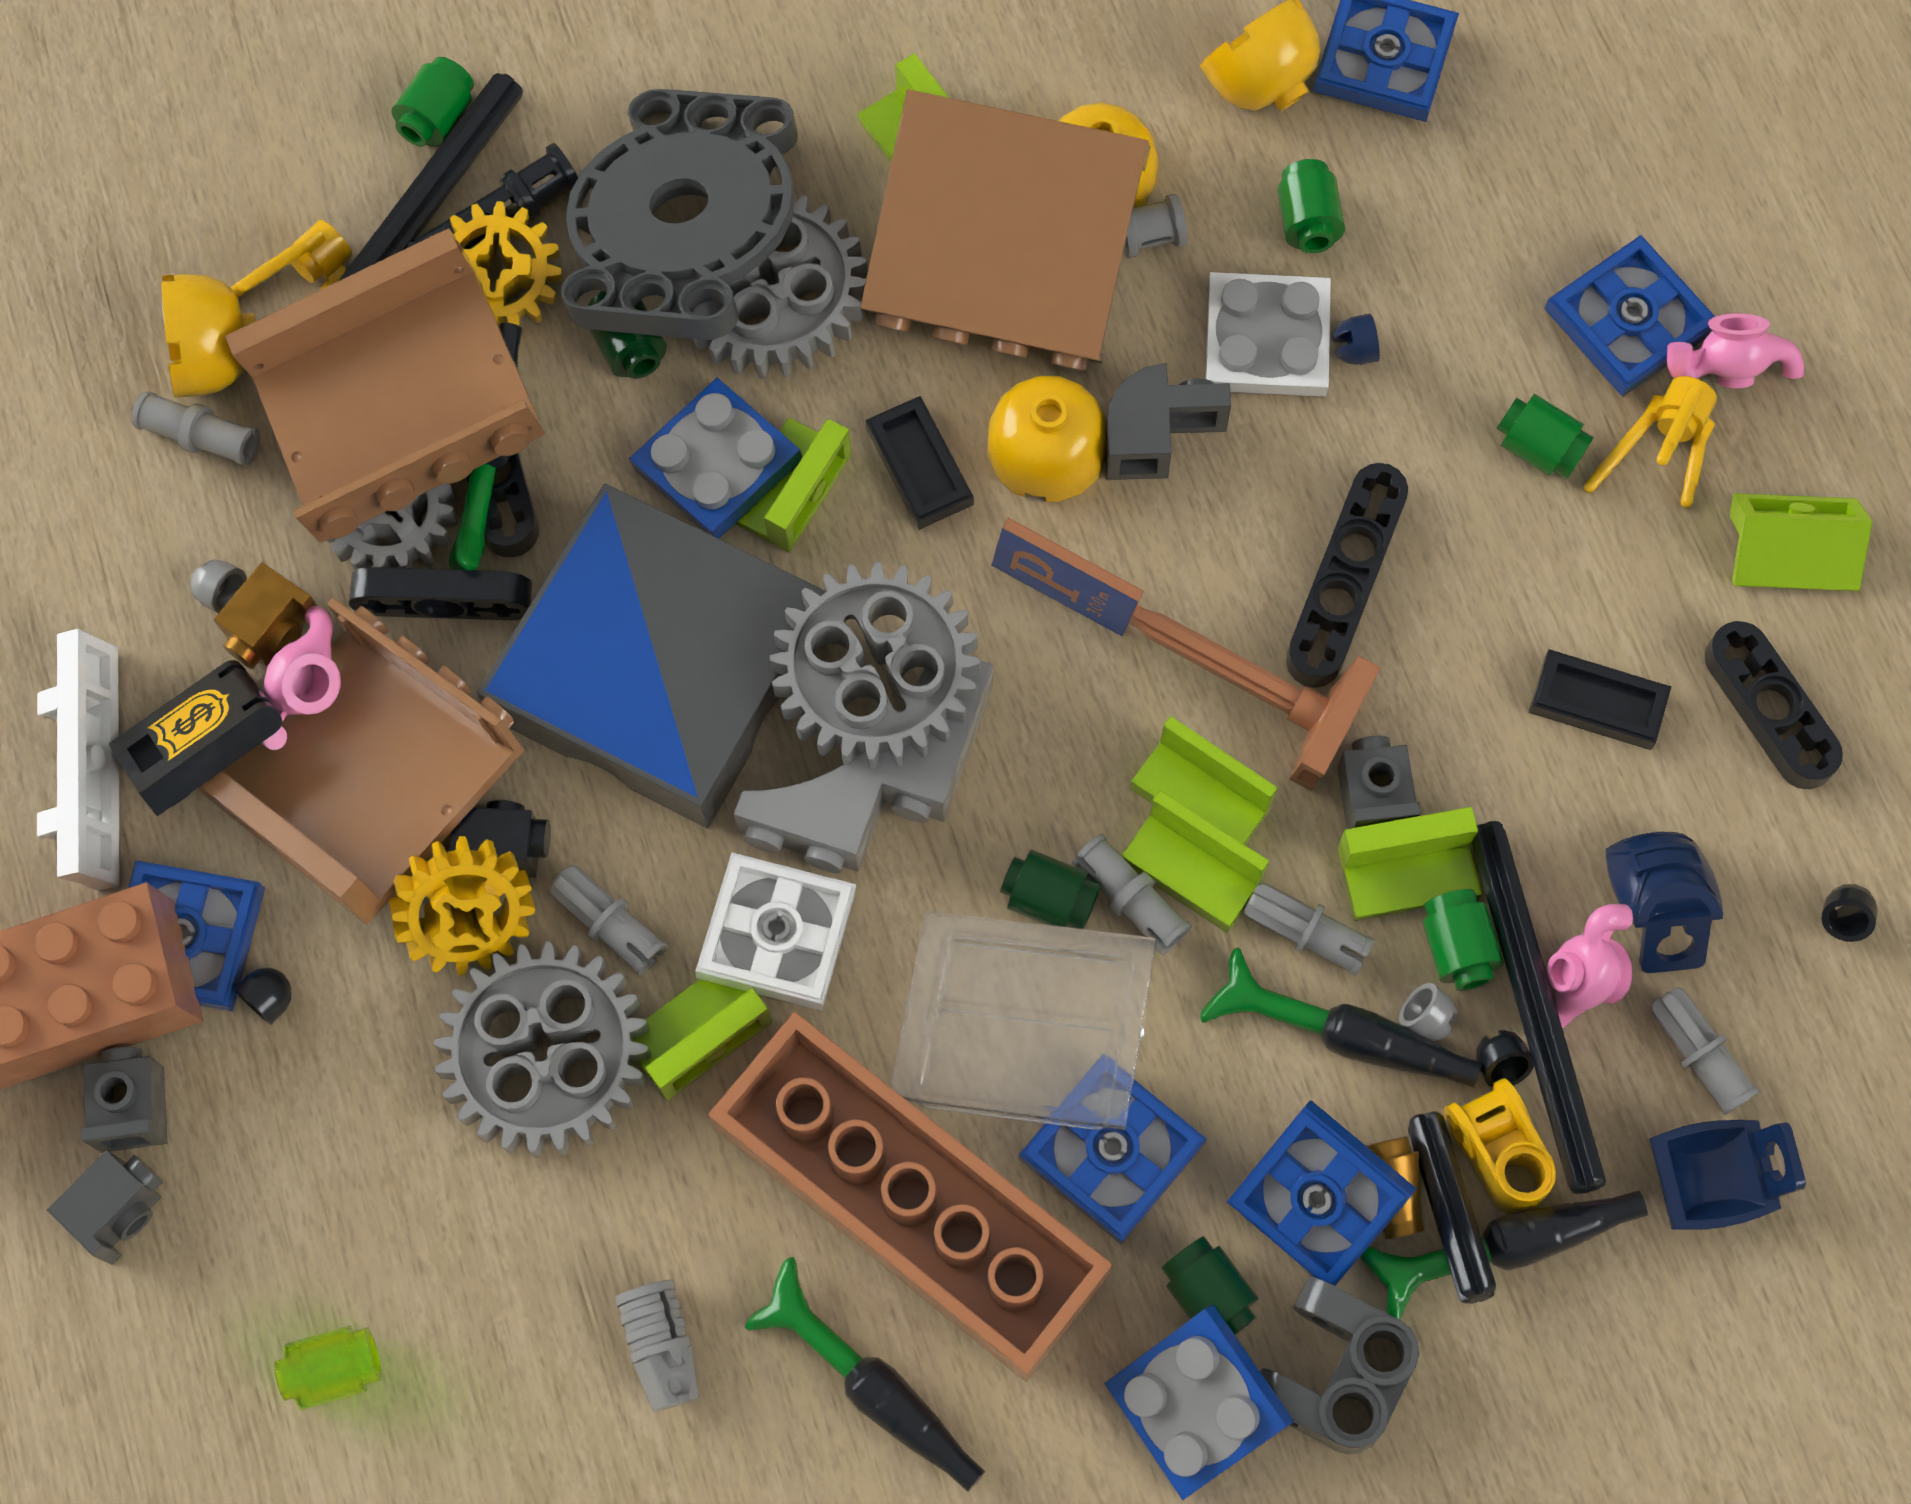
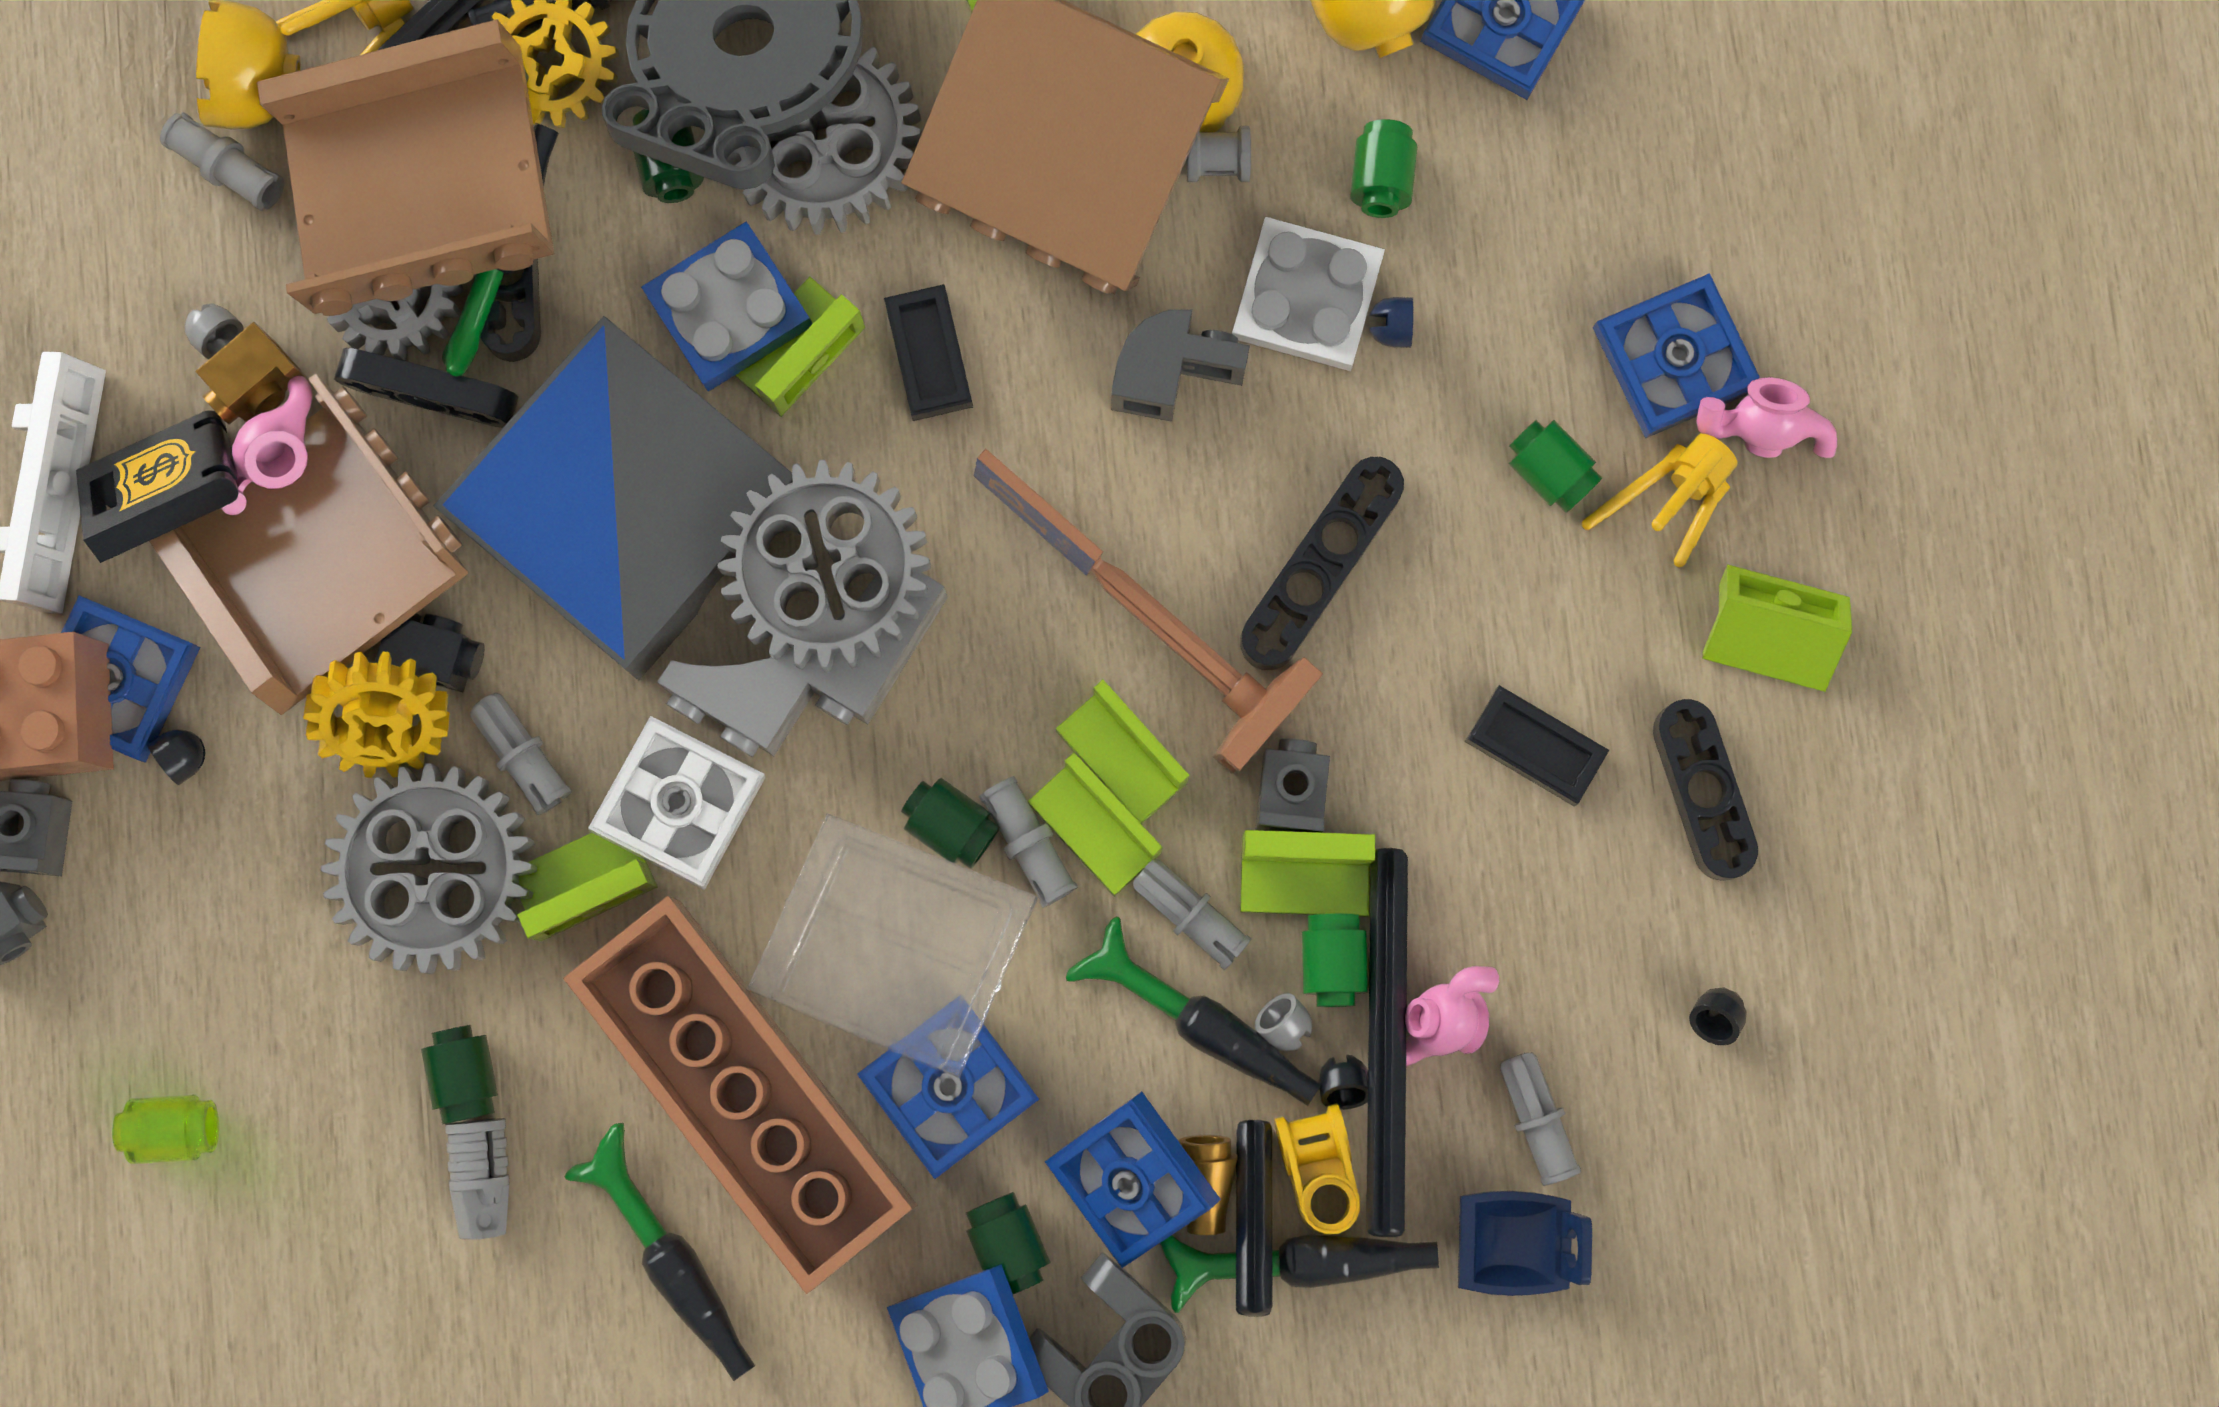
camera: 10 degrees right, 10 degrees up
(617, 1244) = (459, 1074): none -> dark green brick
(1047, 438) = (1059, 357): yellow cylinder -> none
(1666, 886) = (1544, 951): dark blue piece -> none

